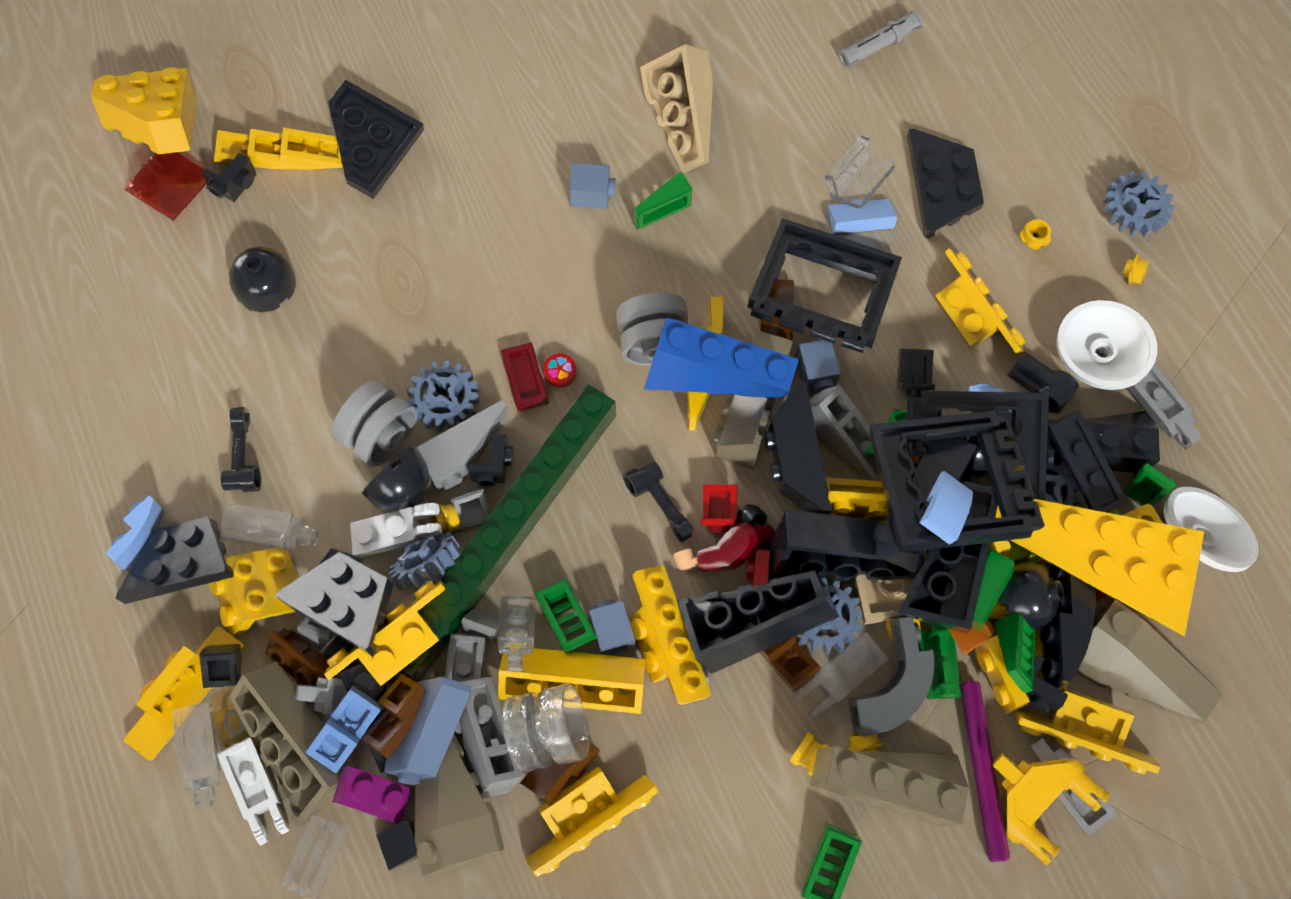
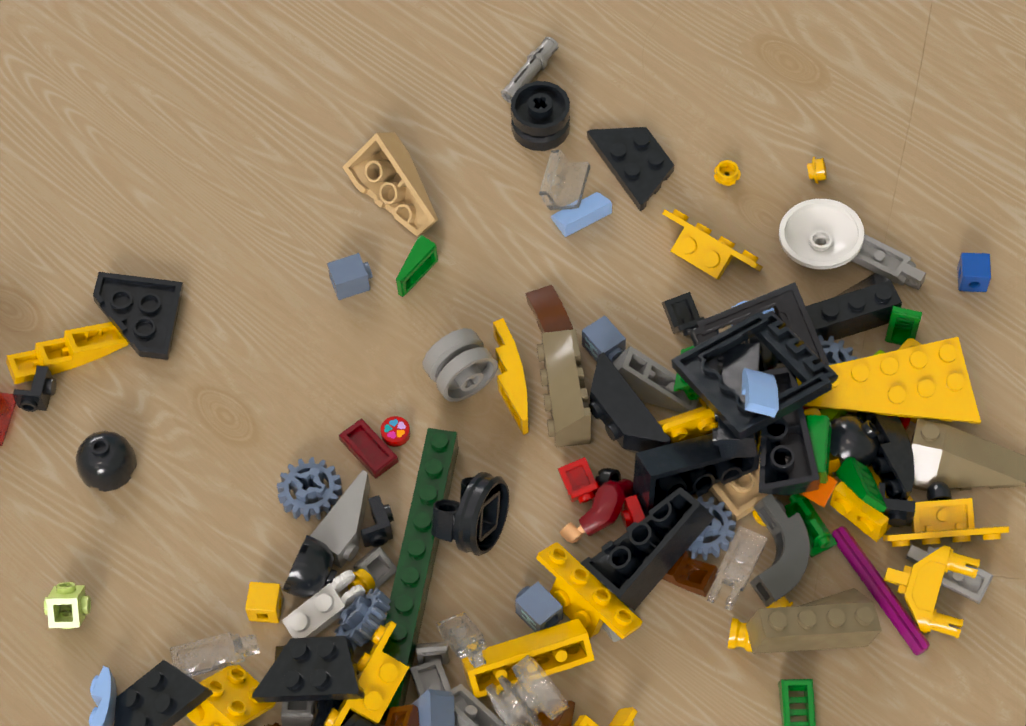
camera: 20 degrees left, 10 degrees down
(147, 415) = (67, 605): none -> yellowish green brick
(240, 477) = (168, 623): black brick -> none
(340, 496) = (264, 602): none -> yellow piece
(374, 423) = (266, 530): light grey wheel -> none
(556, 593) = (487, 597): green slope -> none
(573, 502) = (477, 518): none -> black piece
(646, 480) = (552, 508): black brick -> none
(717, 364) = (528, 365): blue wedge -> none
(834, 253) = (579, 250): black hinge -> none
(867, 93) = (540, 115): none -> black wheel
(1041, 379) = (775, 278): black piece -> none
(1086, 463) = (847, 325): black plate -> none
(1100, 689) = (938, 491): none -> black hinge
(1136, 201) = (795, 118): sand blue gear -> none
(1227, 538) = (978, 339): white dish -> none
(1256, 456) = (974, 272): none -> blue piece

